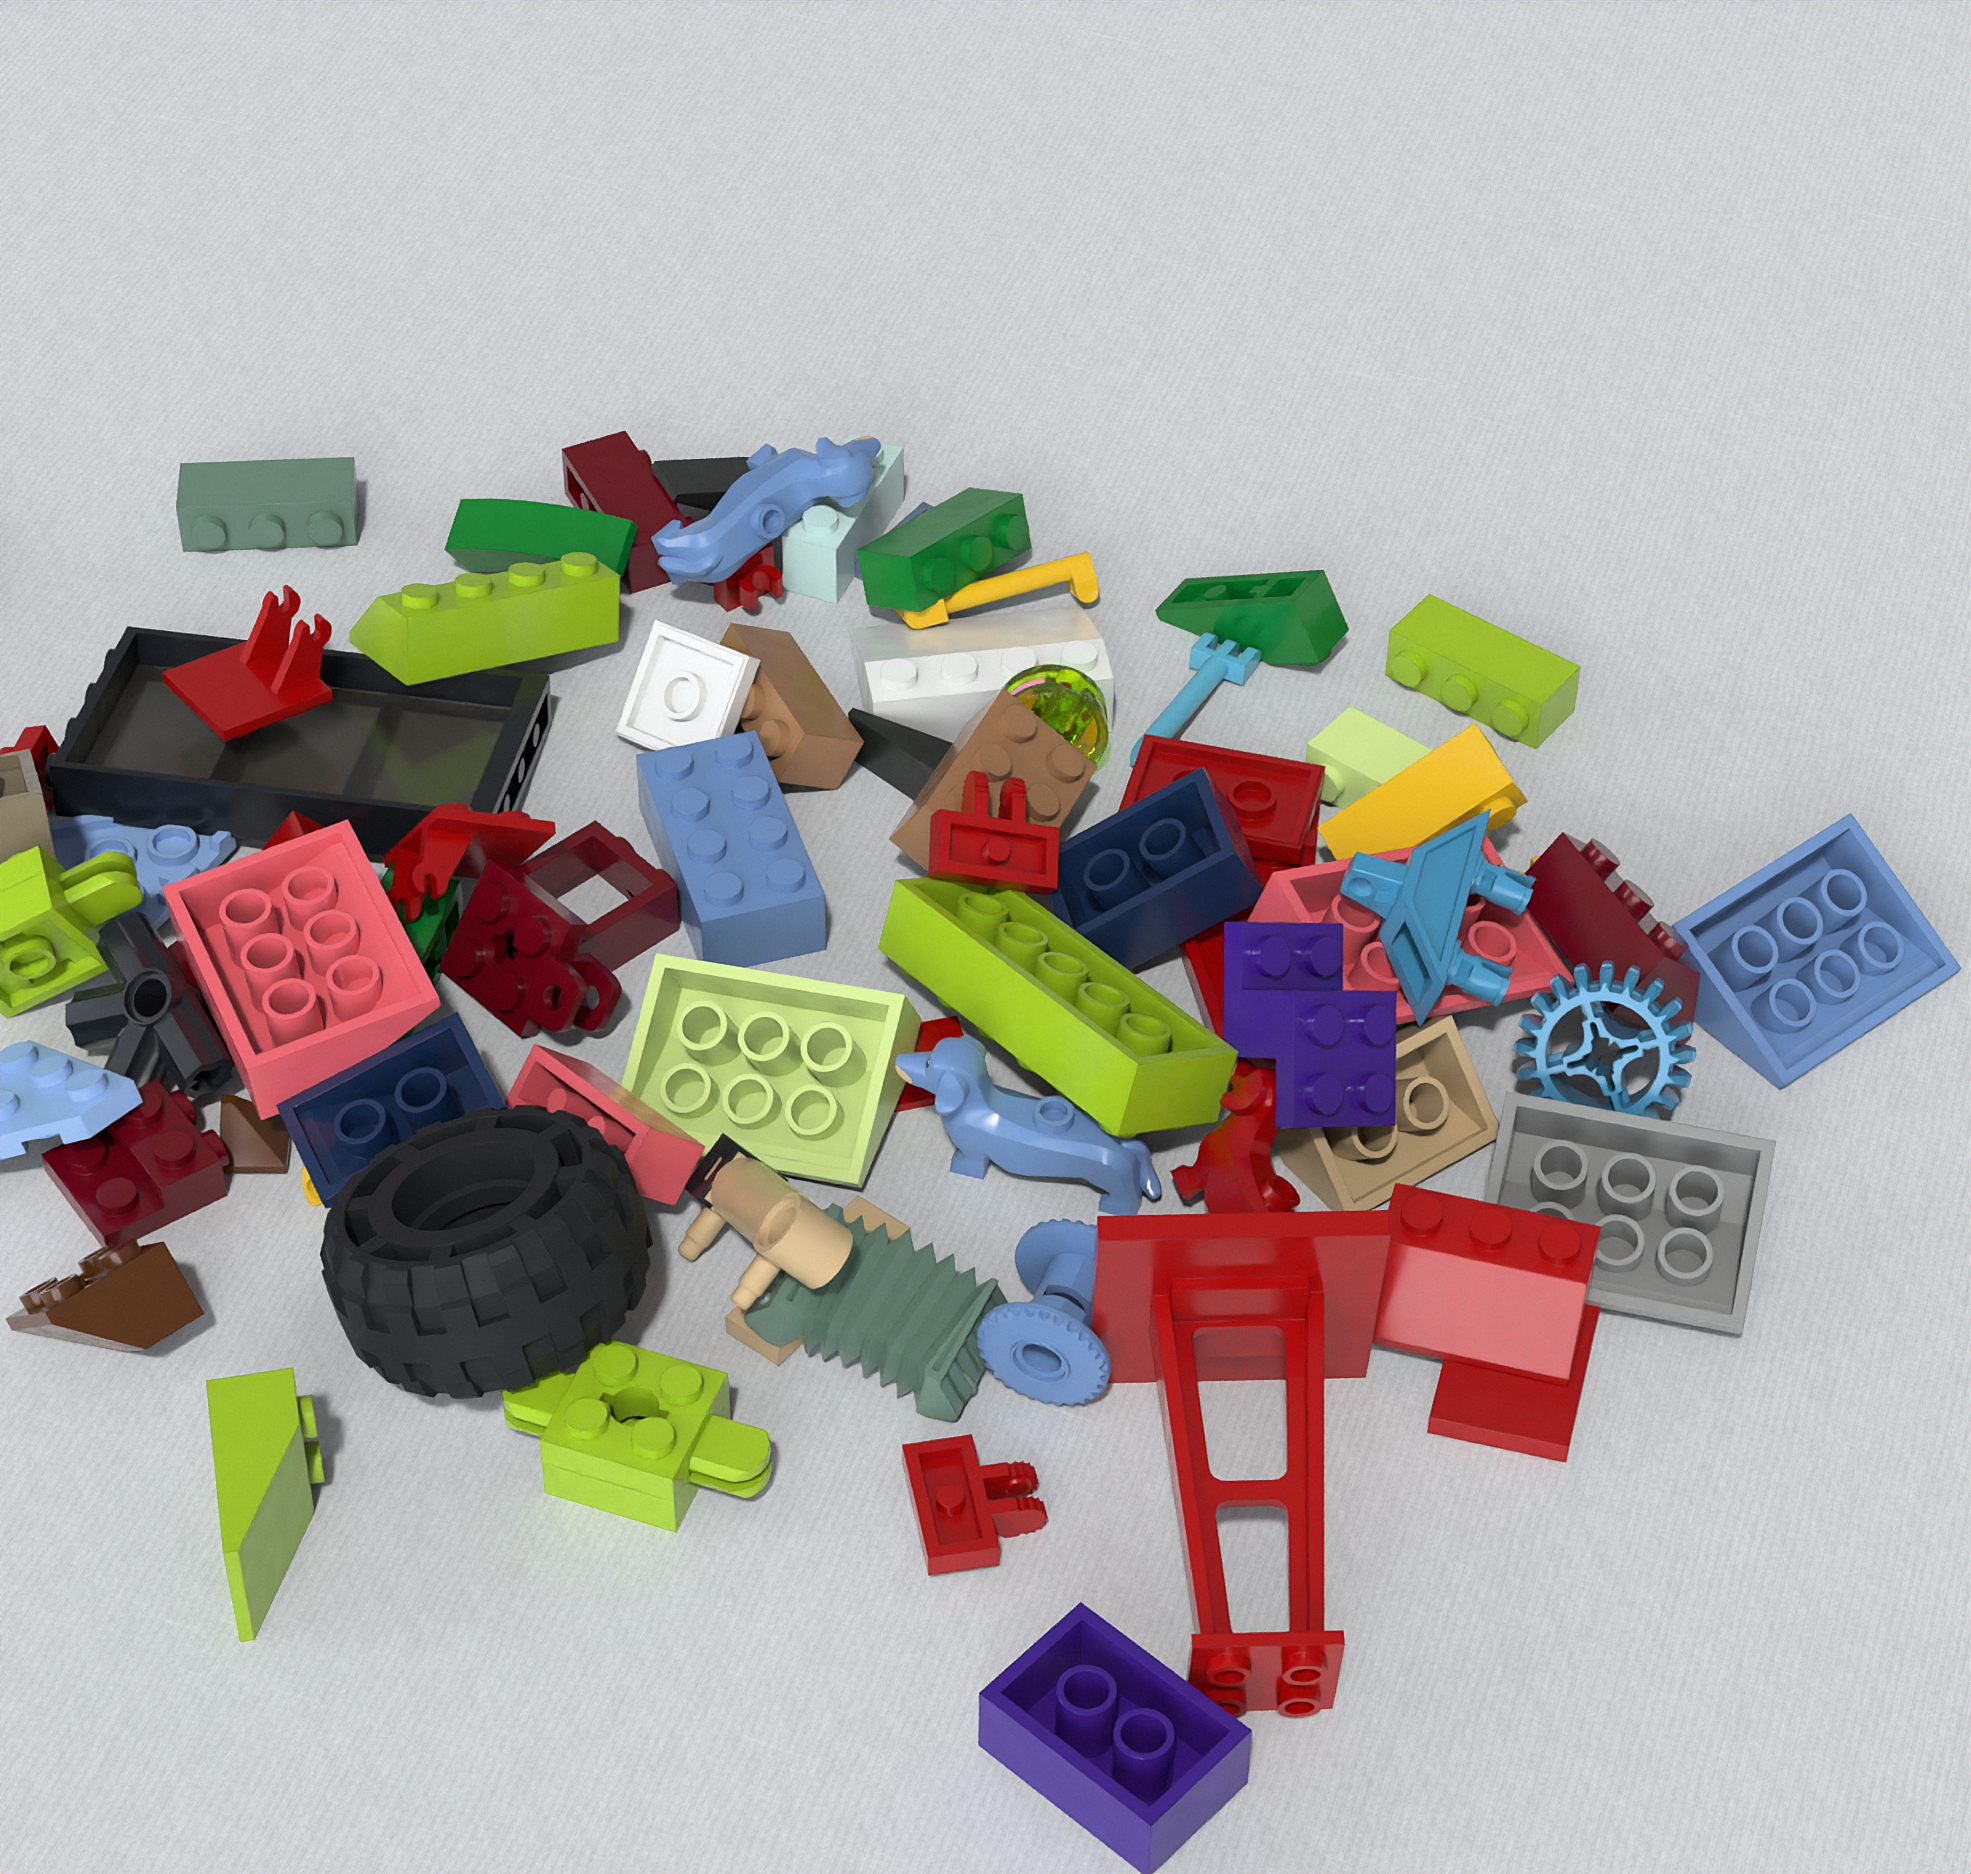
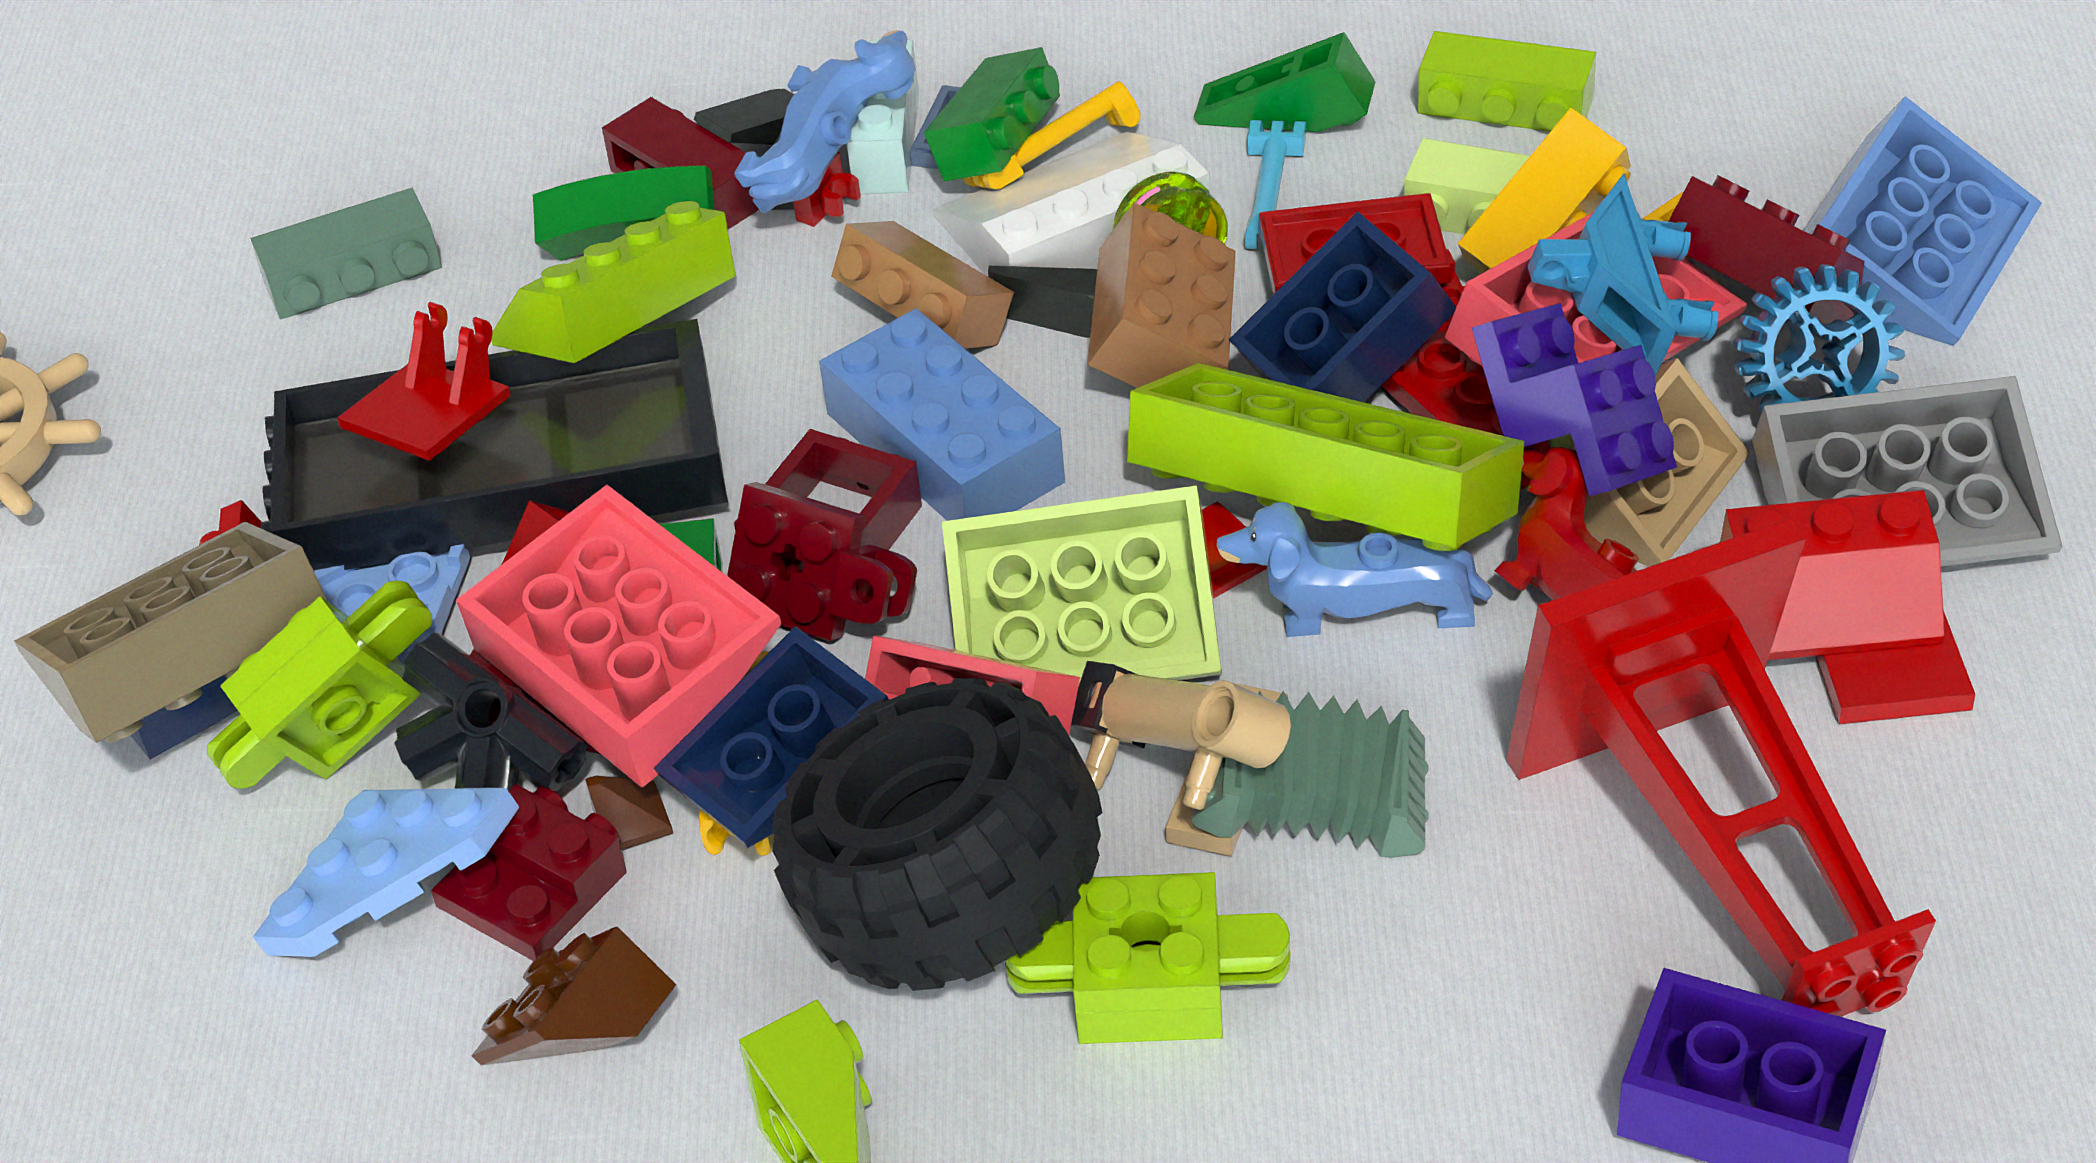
camera: 15 degrees left, 0 degrees up
(457, 843) = (711, 482): red plate -> none
(685, 690) = (830, 295): white tile -> none
(953, 1507) = (1471, 924): red hinge -> none
(993, 850) = (1197, 333): red hinge -> none
(1047, 1343) = (1482, 749): medium blue hose -> none

